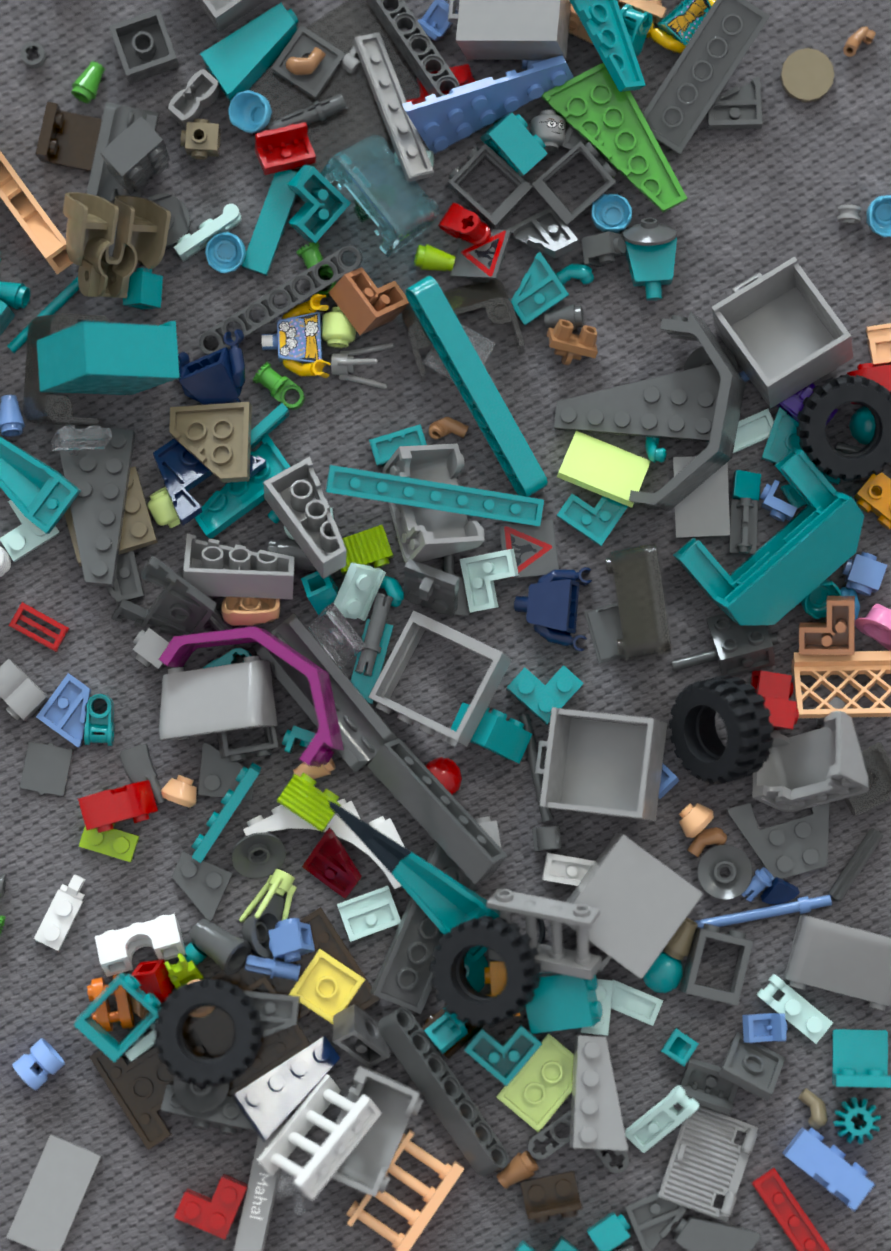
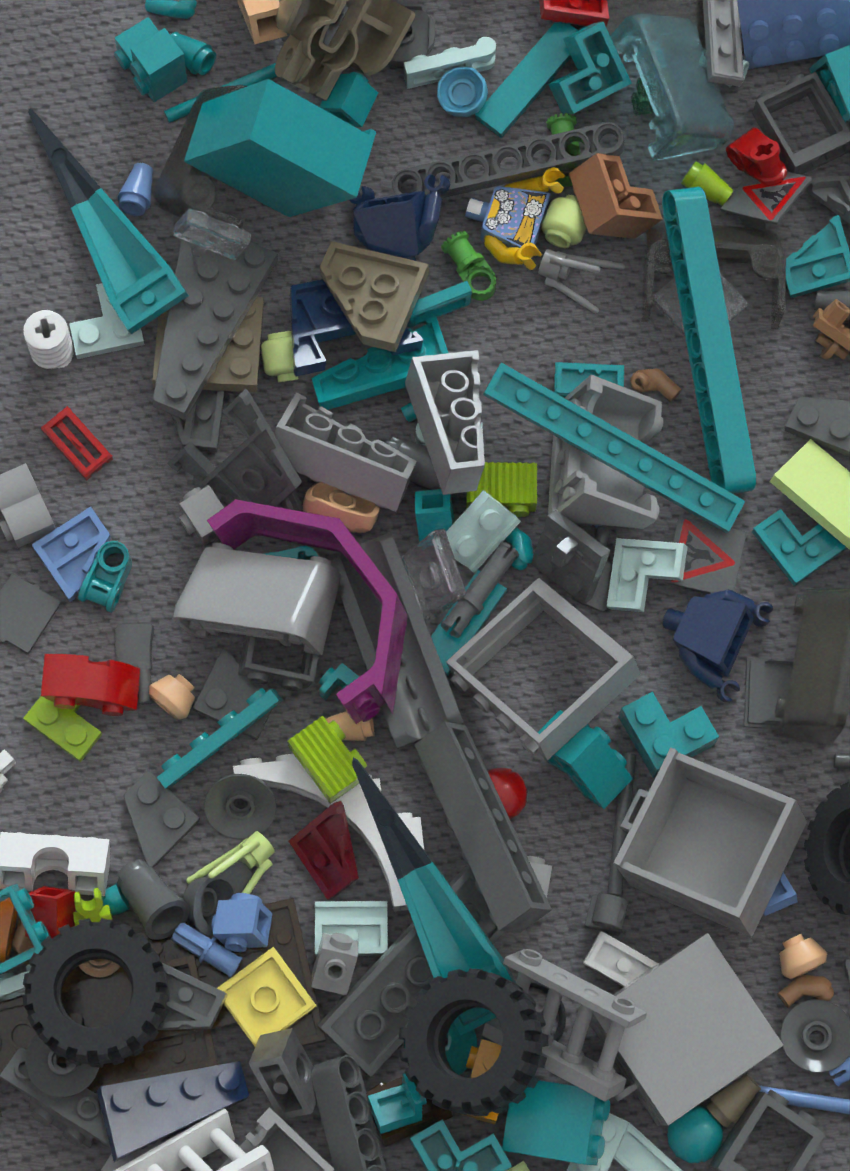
camera: 15 degrees right, 10 degrees down
(367, 945) = (335, 963): none -> light grey brick

